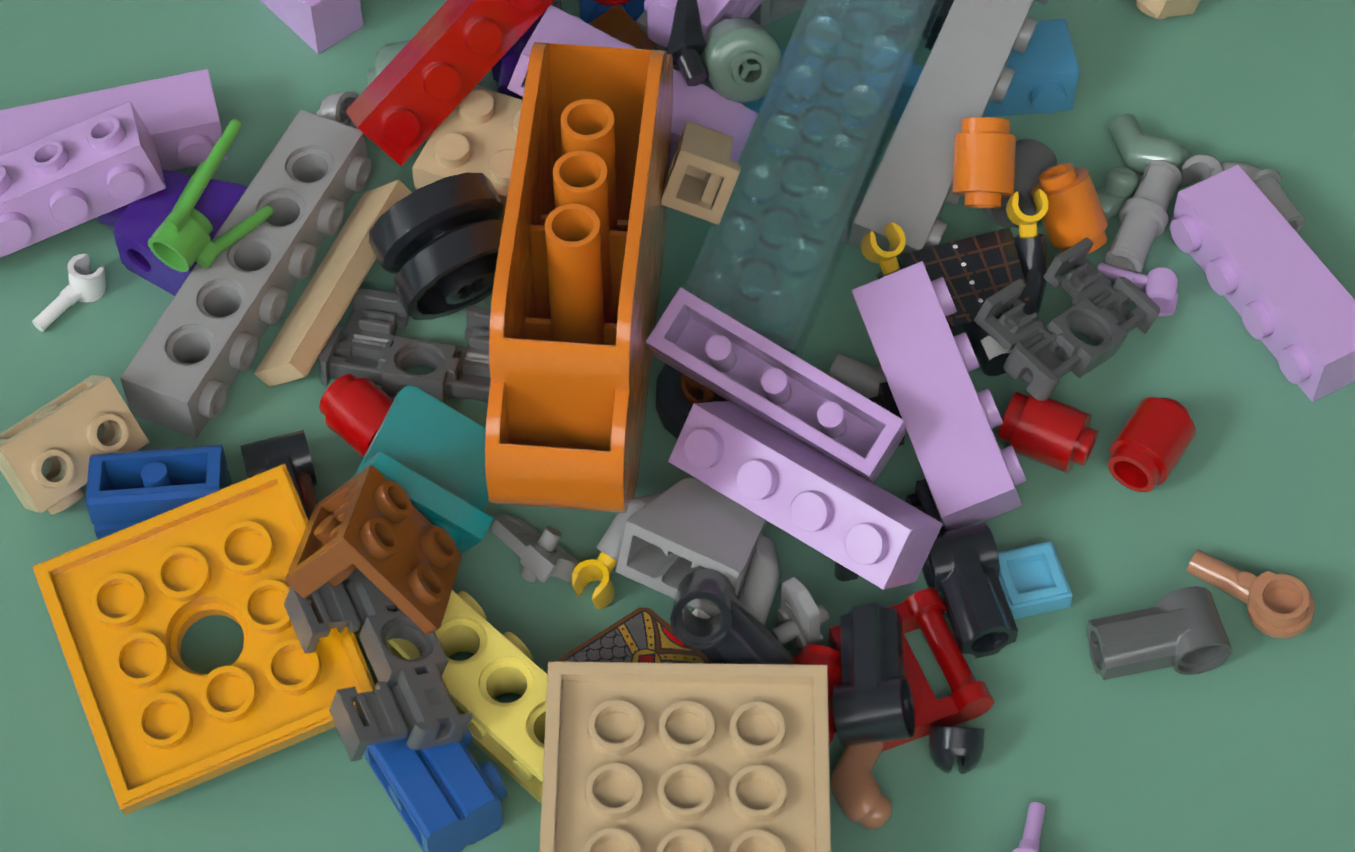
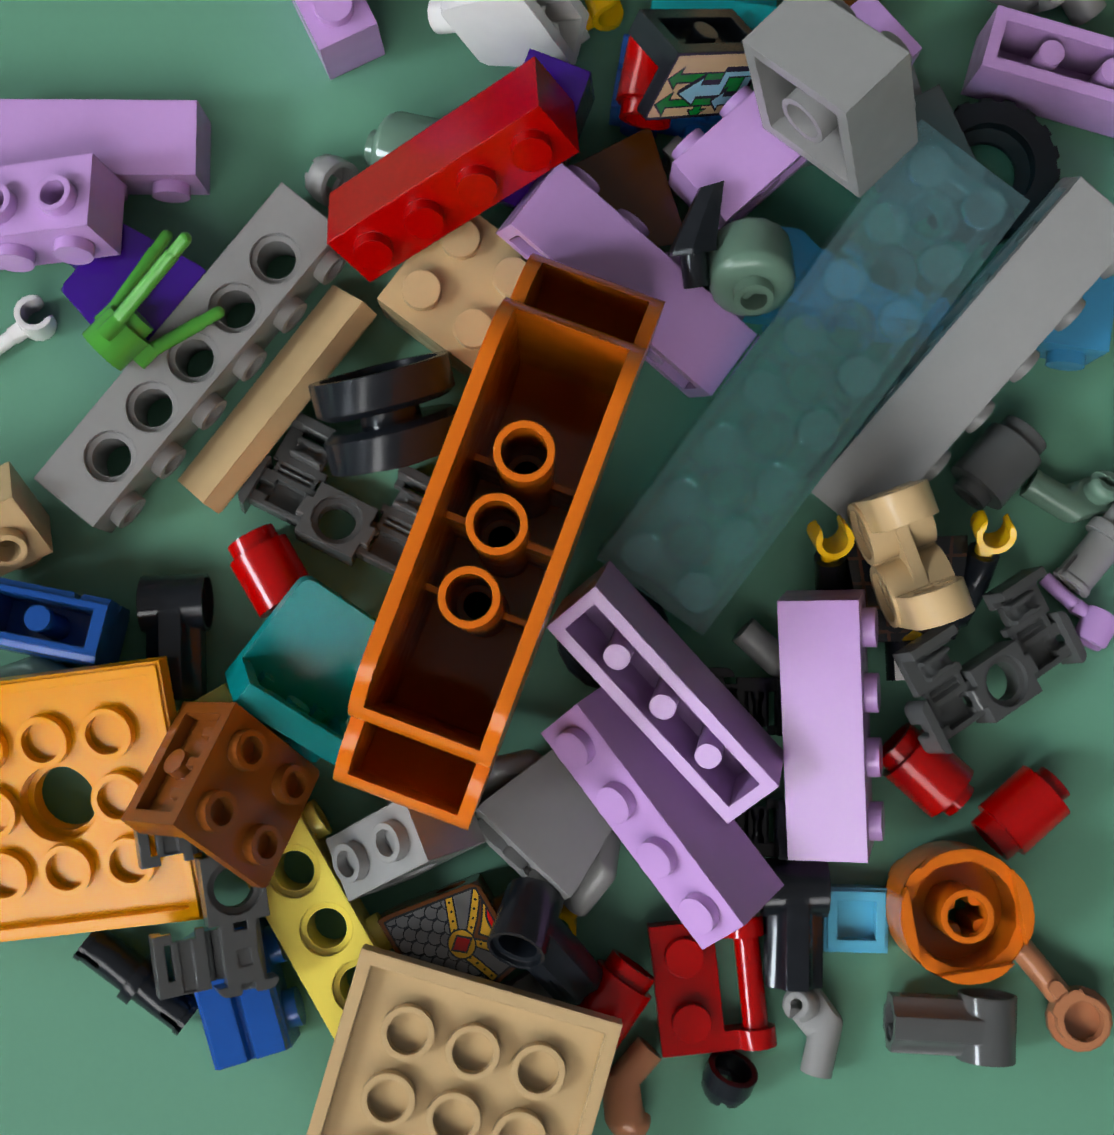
camera: 10 degrees right, 30 degrees up
(320, 800) = (133, 978): none -> black pin
(562, 580) = (395, 848): none -> light grey brick
(701, 174) = (662, 425): tan brick -> none
(799, 616) = (621, 921): light grey piece -> none
(874, 694) = (661, 1038): black piece -> none
(944, 225) = (907, 566): none -> tan piece
(984, 162) = (968, 470): orange brick -> none
(1029, 676) = (822, 1027): none -> light grey arm
(1073, 207) = (1042, 518): orange brick -> none
(1120, 527) = (986, 932): none -> orange brick

